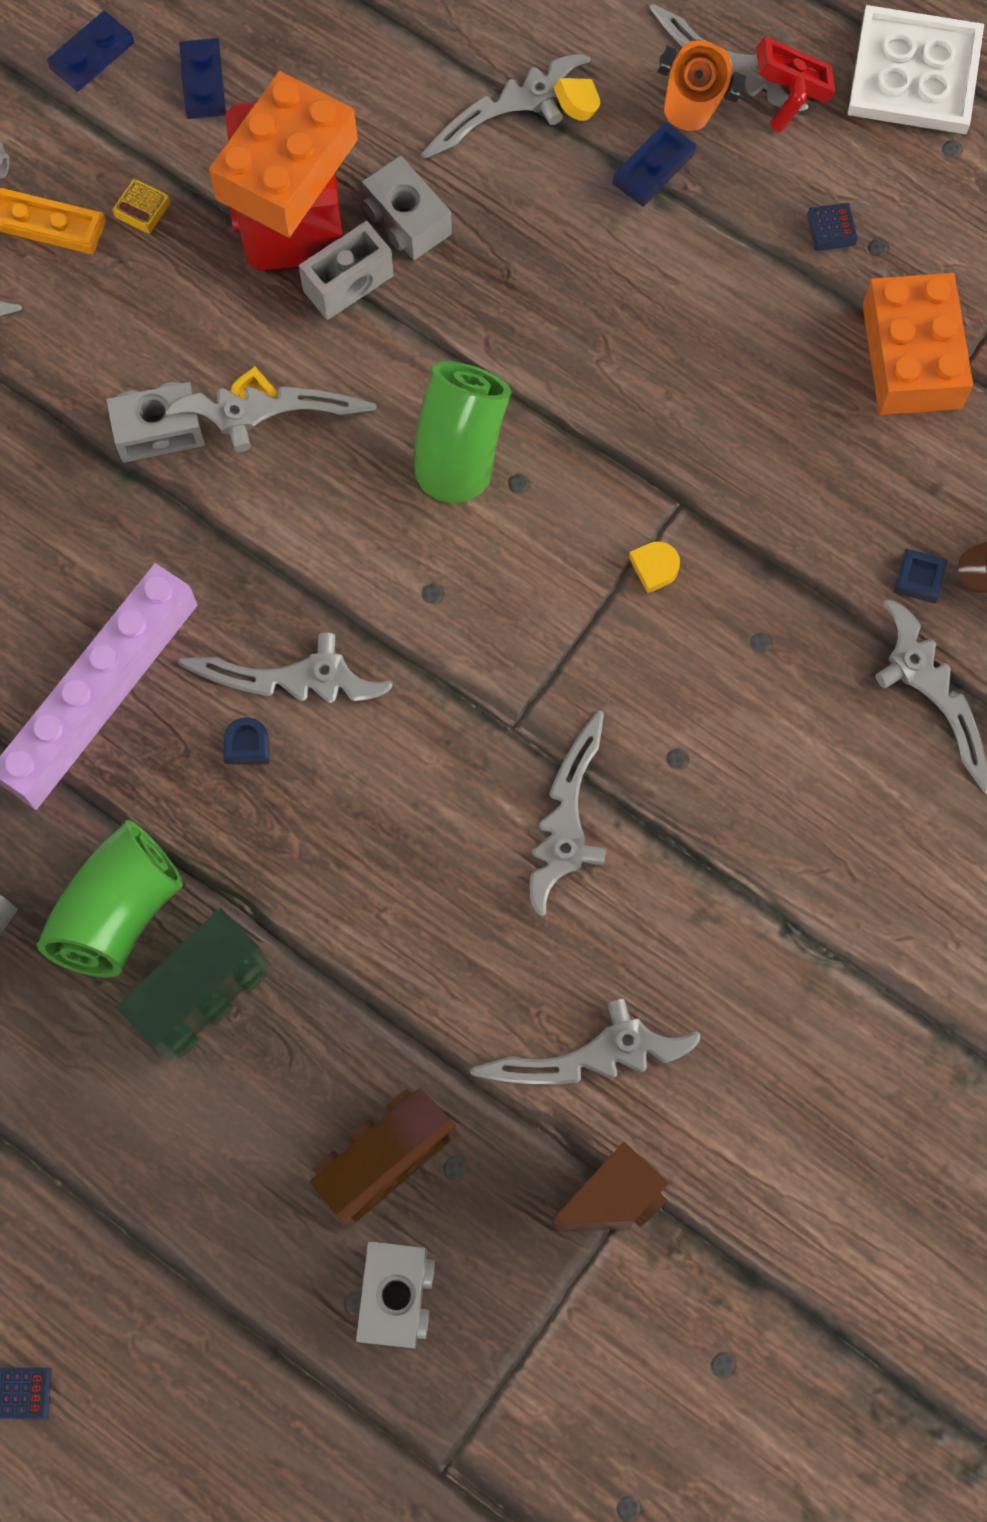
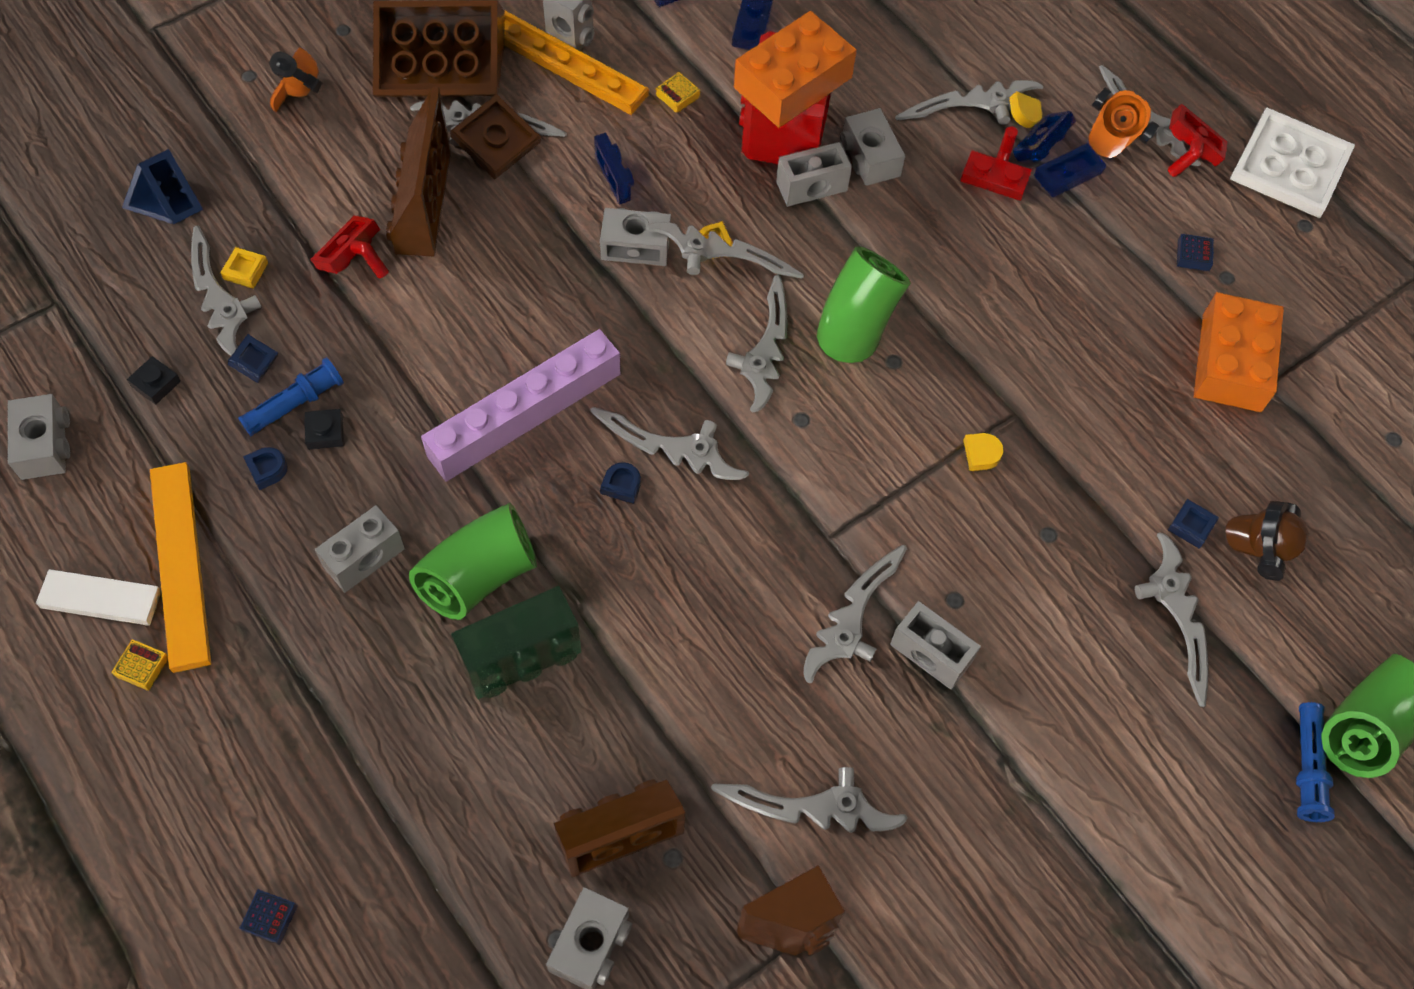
camera: 15 degrees right, 10 degrees down
(88, 328) = (609, 160): none -> clear blue plate
(357, 539) = (758, 363): none -> light grey piece
(566, 194) = (997, 173): none -> red plate
(611, 128) = (1044, 136): none -> clear blue plate
(671, 825) = (934, 645): none -> light grey brick

